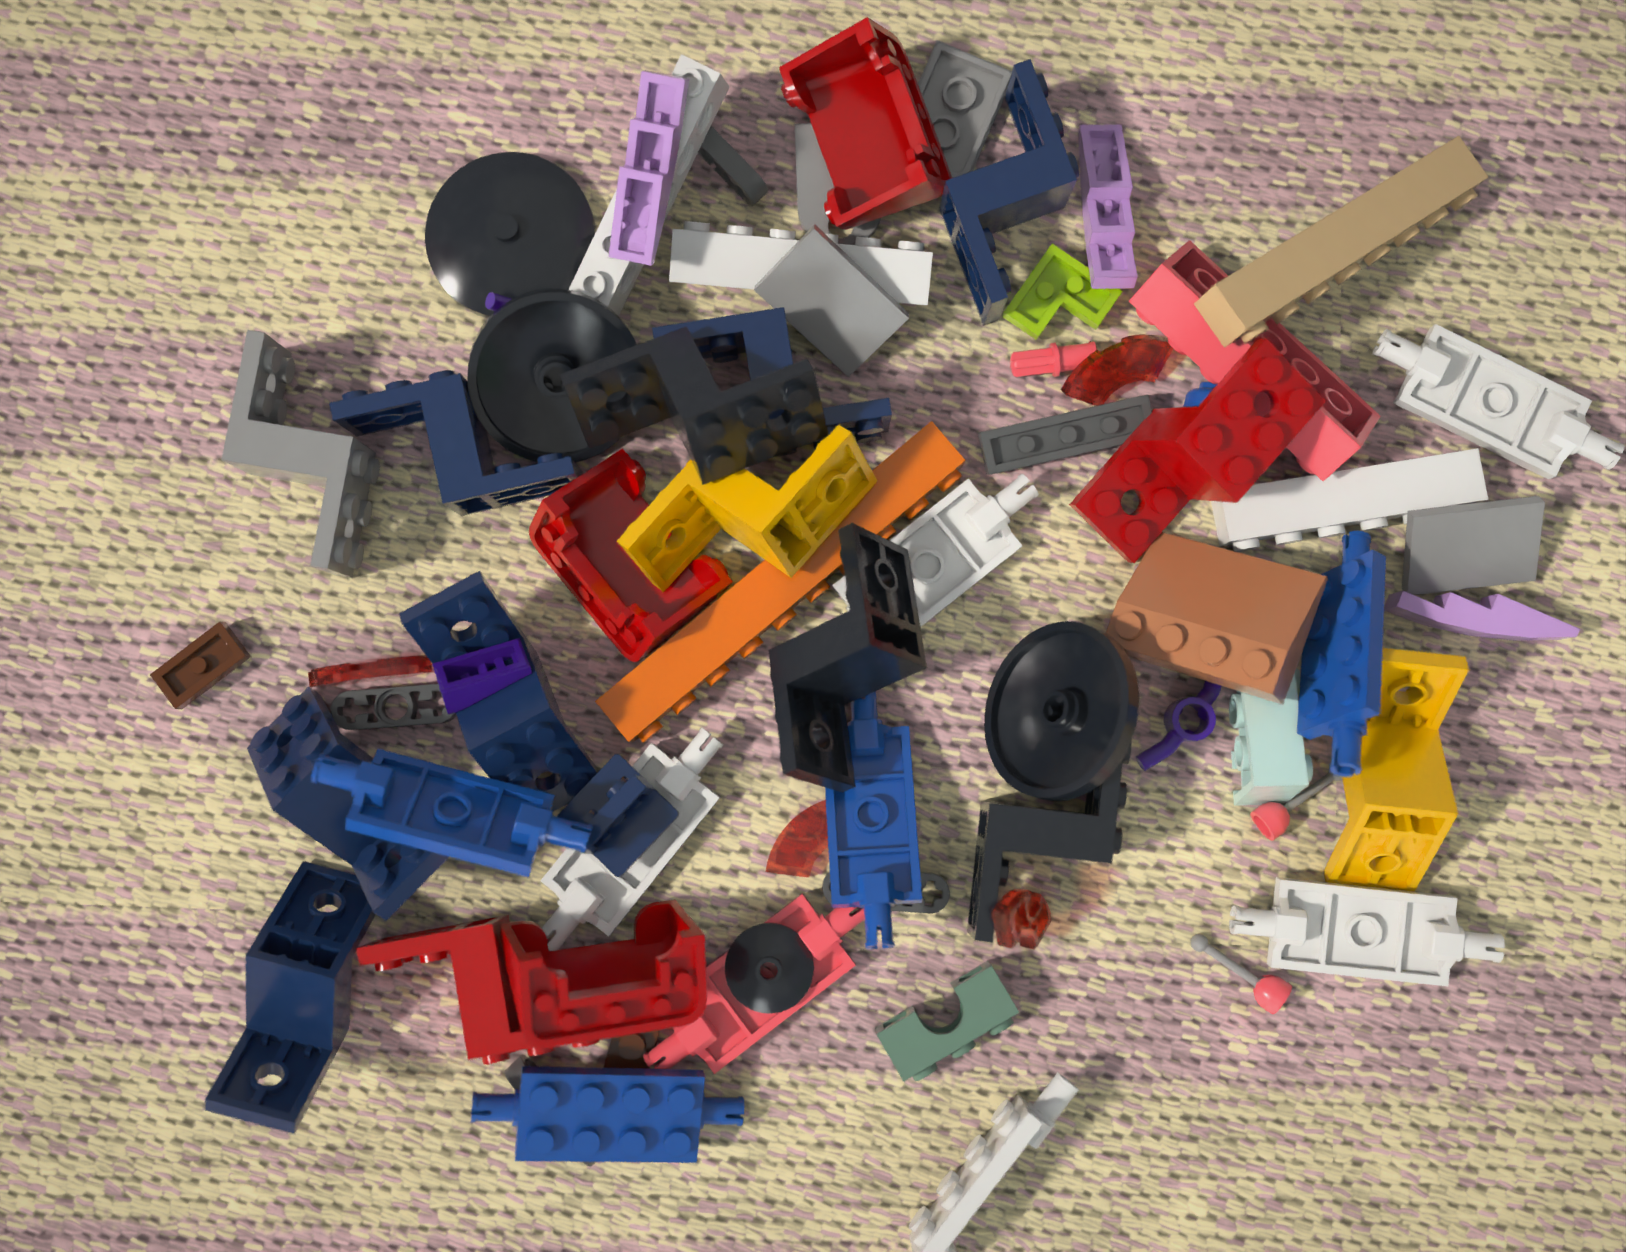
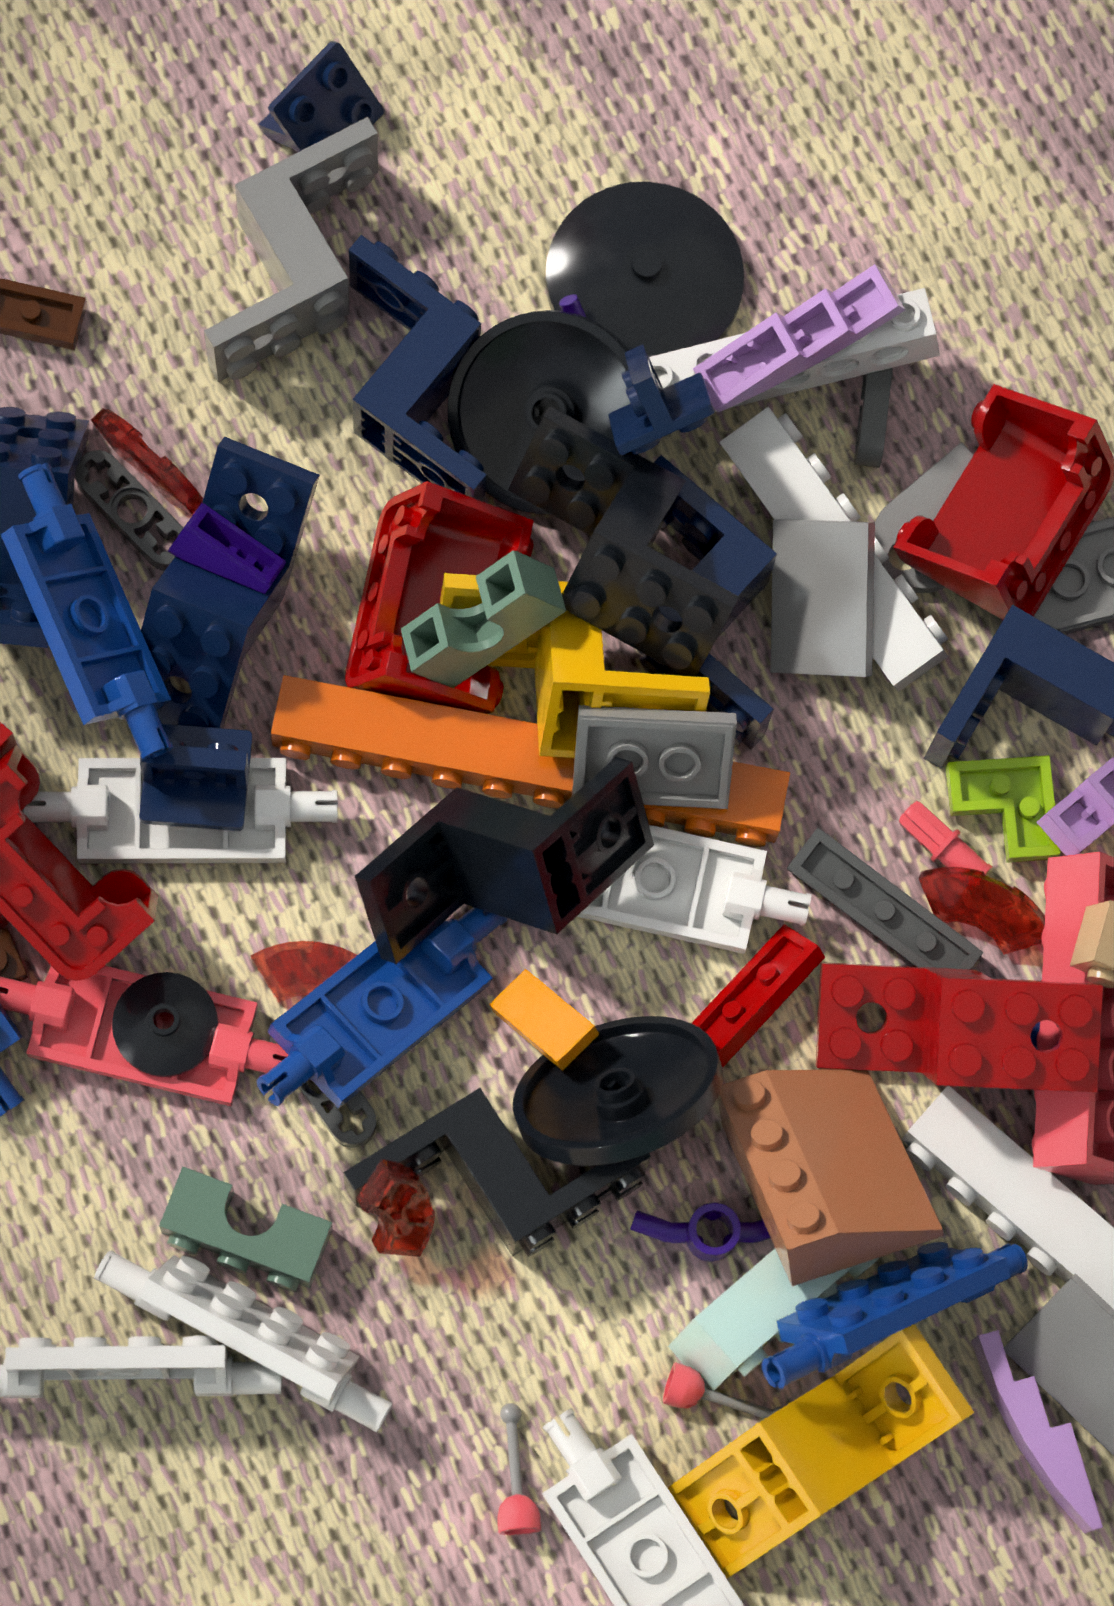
camera: 40 degrees right, 10 degrees down
(209, 351) = (321, 101): none -> dark blue bracket
(622, 305) = (656, 409): none -> dark blue bracket
(680, 512) = (454, 644): none -> sand green arch
(863, 491) = (675, 753): none -> light grey tile
(964, 715) = (544, 1019): none -> light orange tile
(1019, 1077) = (250, 1327): none -> white plate
(1055, 562) = (758, 990): none -> red plate

